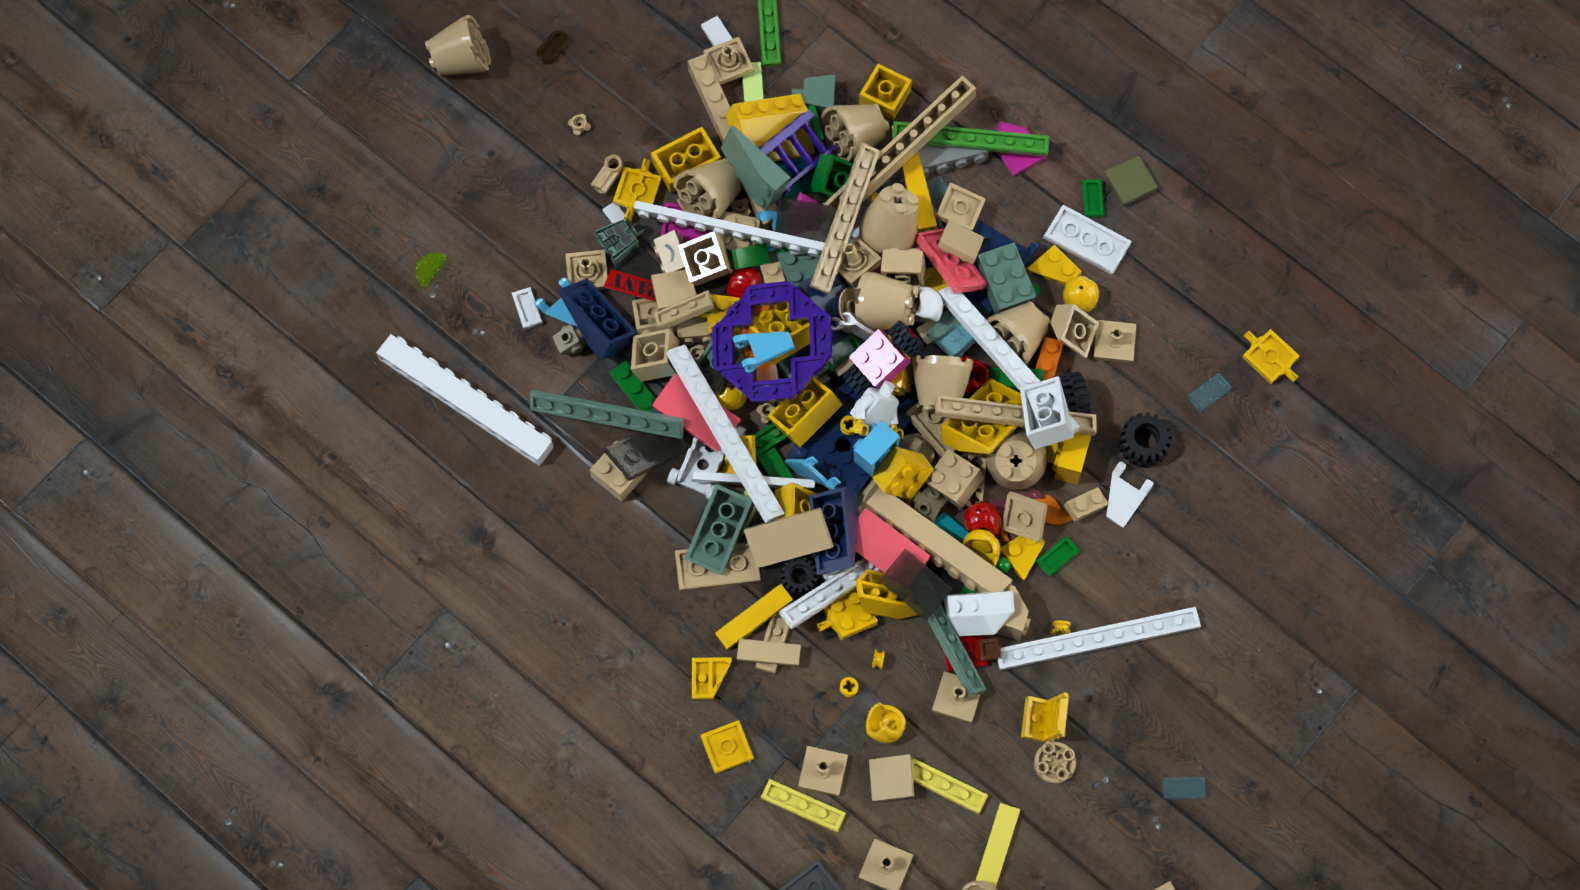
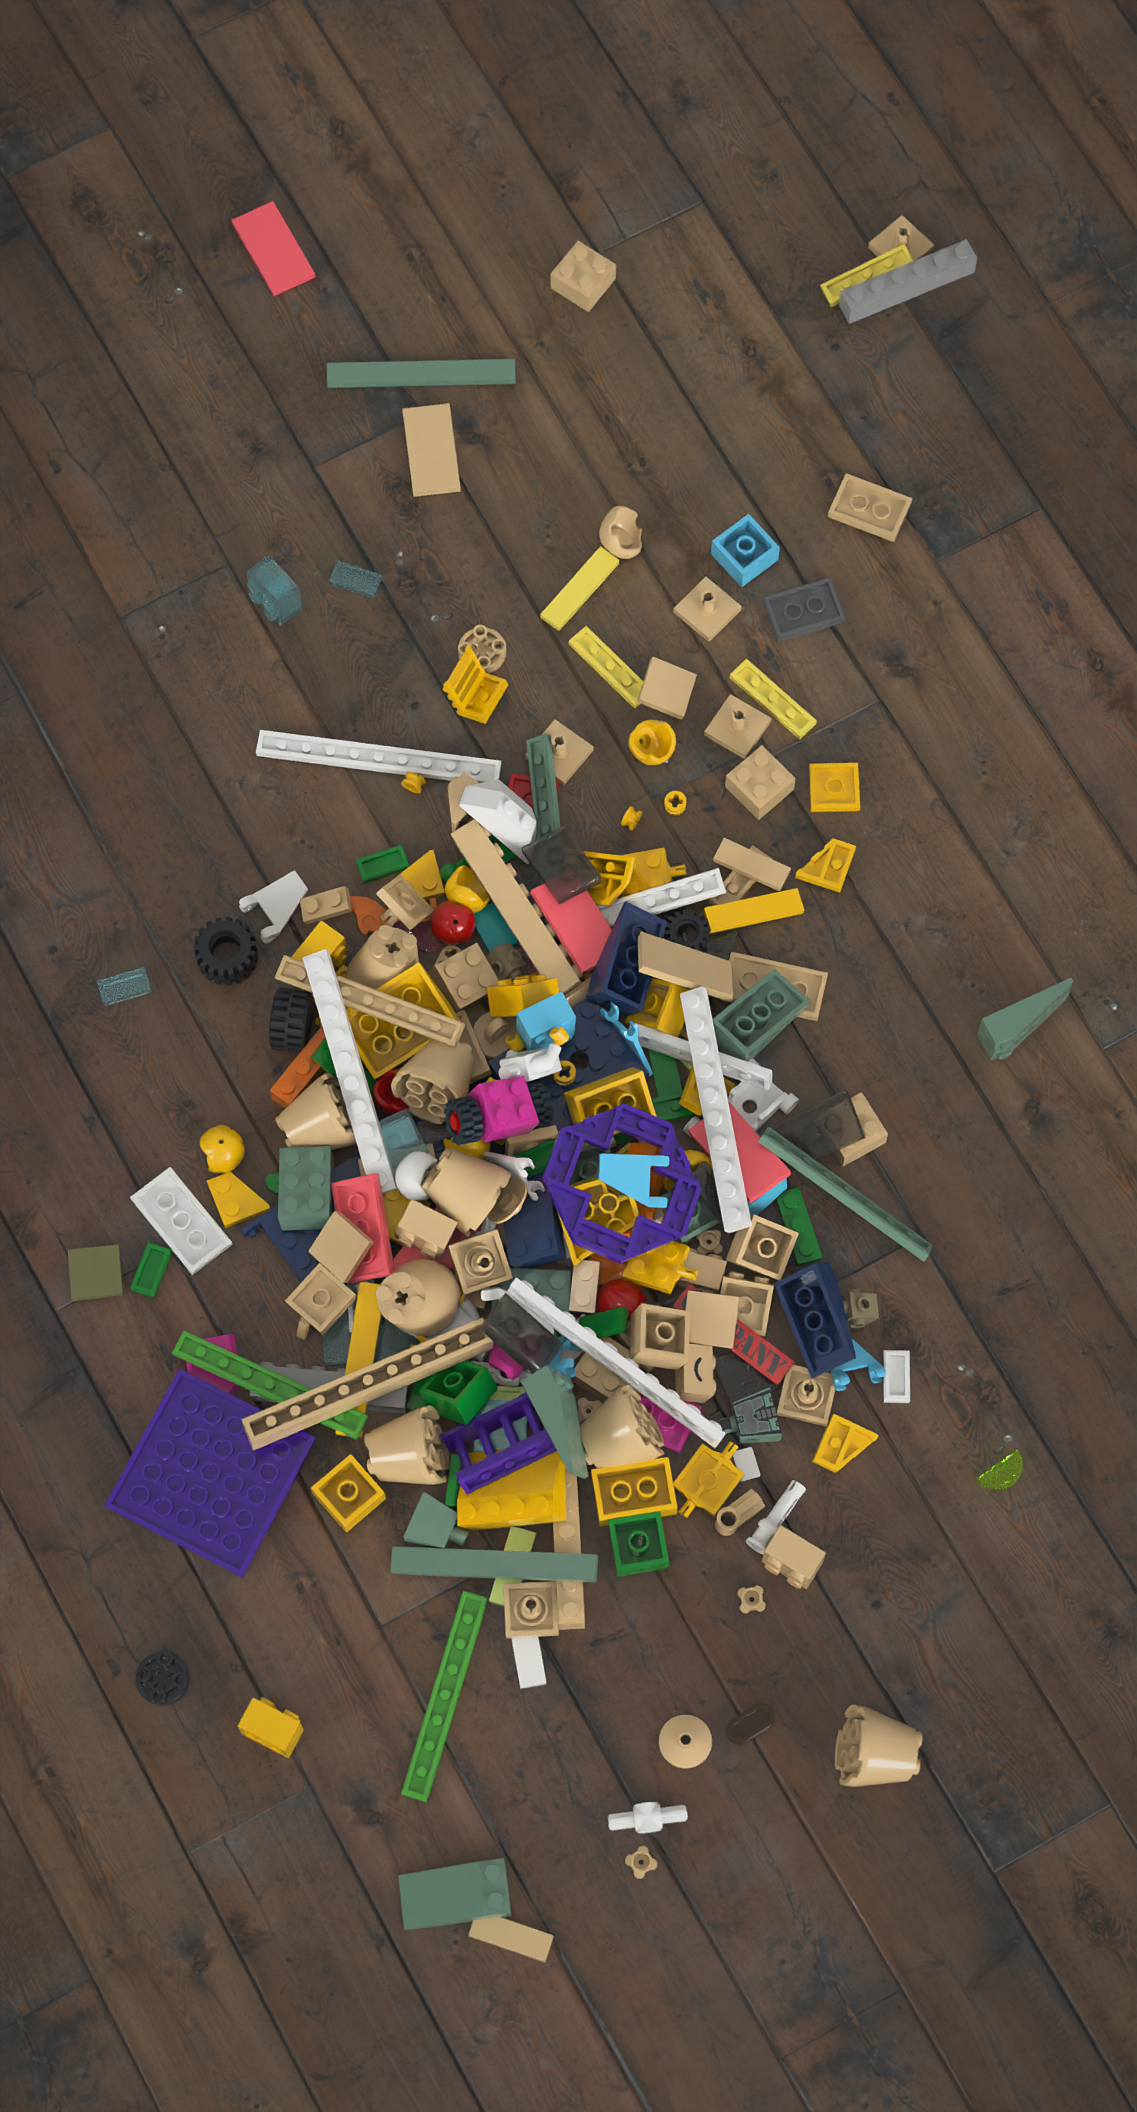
camera: 160 degrees left, 0 degrees up
(465, 400) = (1009, 1283): white brick -> none
(521, 588) = (1010, 1026): none -> sand green slope
(551, 246) = (841, 1443): none -> yellow wing
(558, 152) = (793, 1558): none -> tan brick
(582, 173) = (770, 1525): none -> white pin
(593, 30) = (685, 1755): none -> tan dish
(668, 123) = (638, 1544): none -> green brick
(684, 310) = (709, 1280): tan tile -> none
(762, 77) = (494, 1564): none -> sand green tile
(786, 724) = (760, 782): none -> tan brick
(844, 218) = (473, 1308): tan tile -> none
(990, 649) = (507, 777): reddish brown tile -> none
(1004, 67) = (201, 1478): none -> dark purple plate
(1046, 413) = (336, 977): white slope -> none
(1074, 328) = (252, 1101): tan slope -> none
(1114, 341) = (206, 1085): tan tile -> none
(1243, 743) = (274, 591): none -> clear light blue brick
(1270, 356) = (34, 1000): yellow plate -> none

